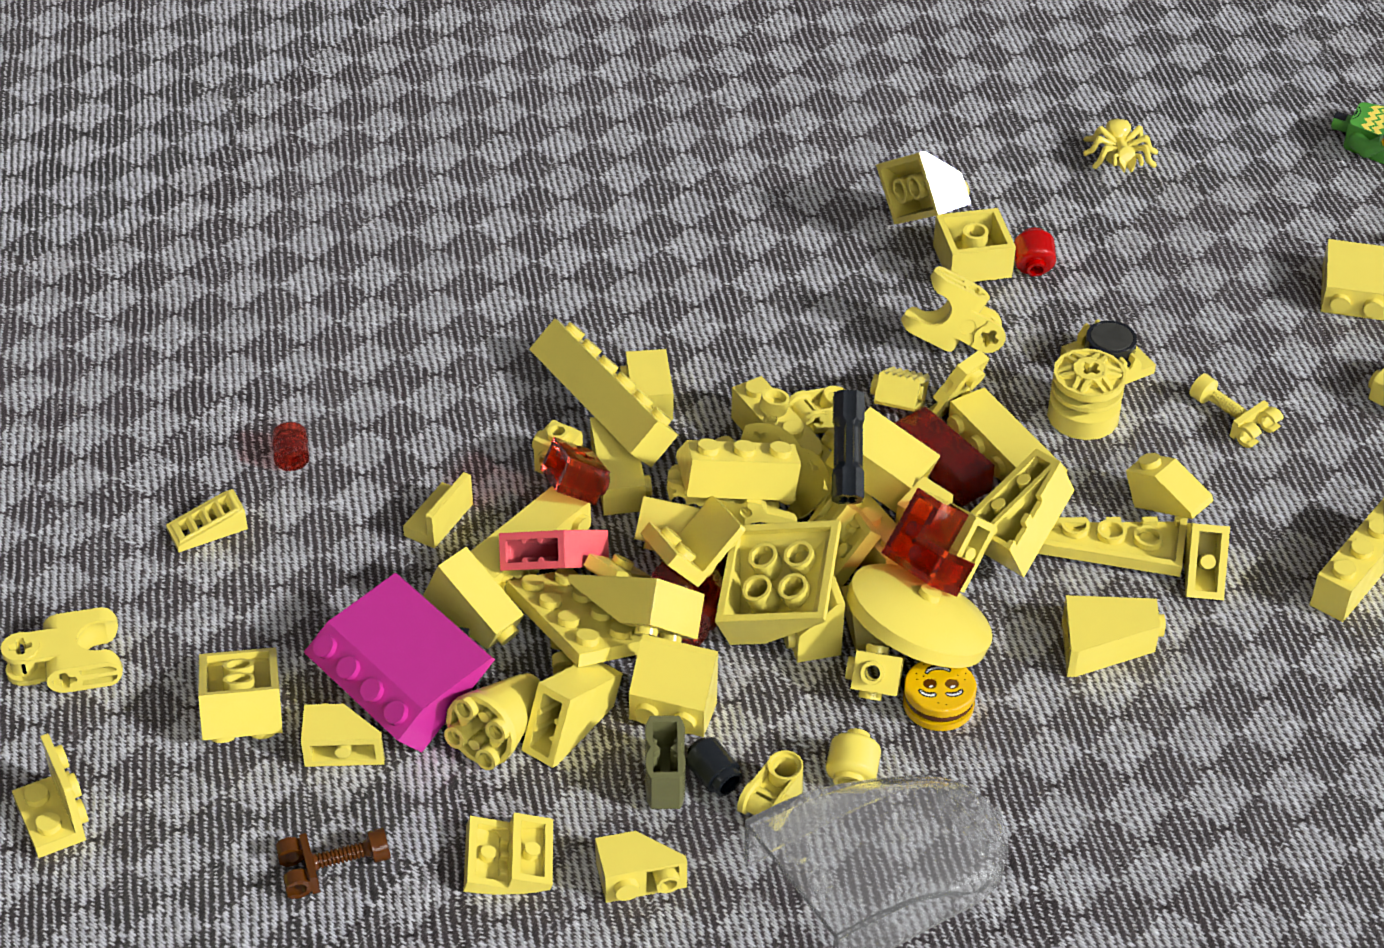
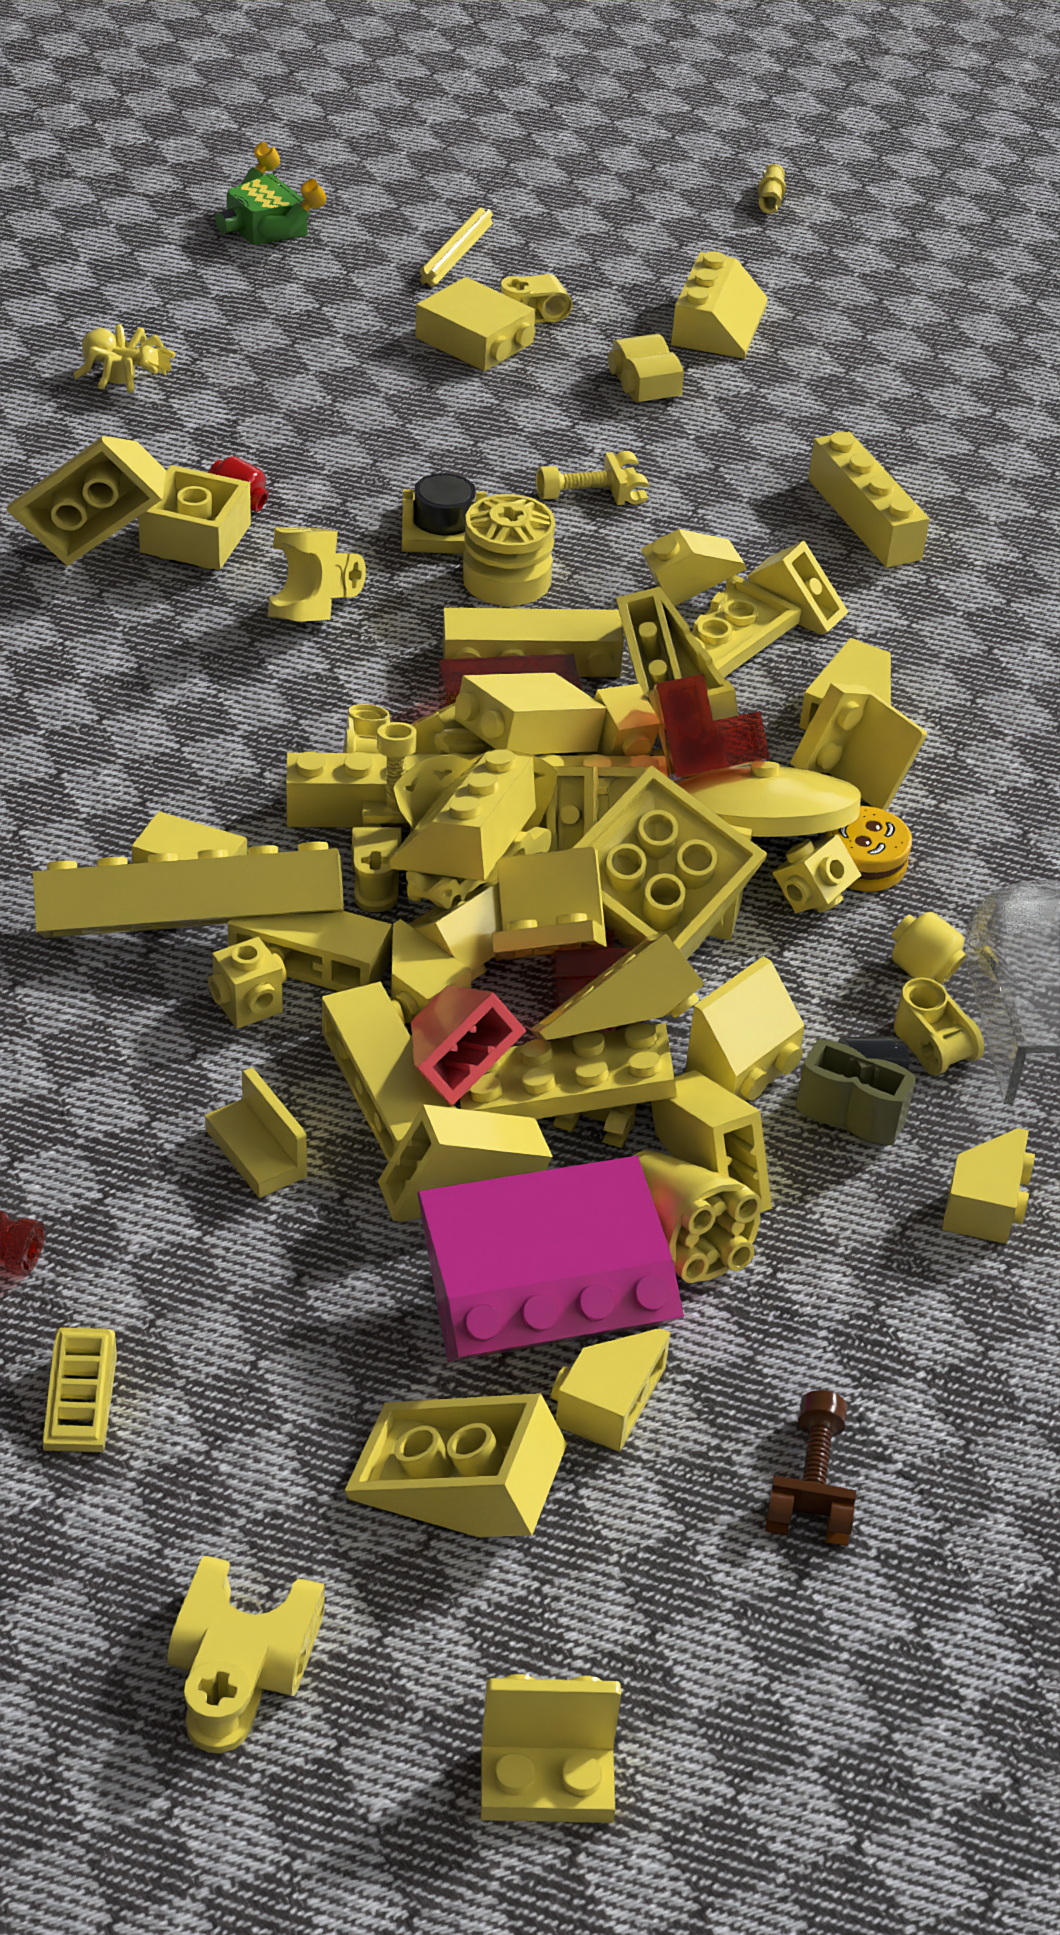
camera: 65 degrees left, 0 degrees up
(508, 855) = (897, 1298): light yellow slope -> none
(575, 471) = (334, 966): clear red brick -> none
(613, 566) = (528, 1006): light yellow plate -> none
(621, 519) = (421, 970): none -> light yellow slope
(848, 447) = (518, 685): black axle -> none
(900, 389) = (392, 664): light yellow brick -> none
(960, 382) = (424, 629): light yellow wing -> none
(1035, 629) = (860, 742): none -> light yellow bracket

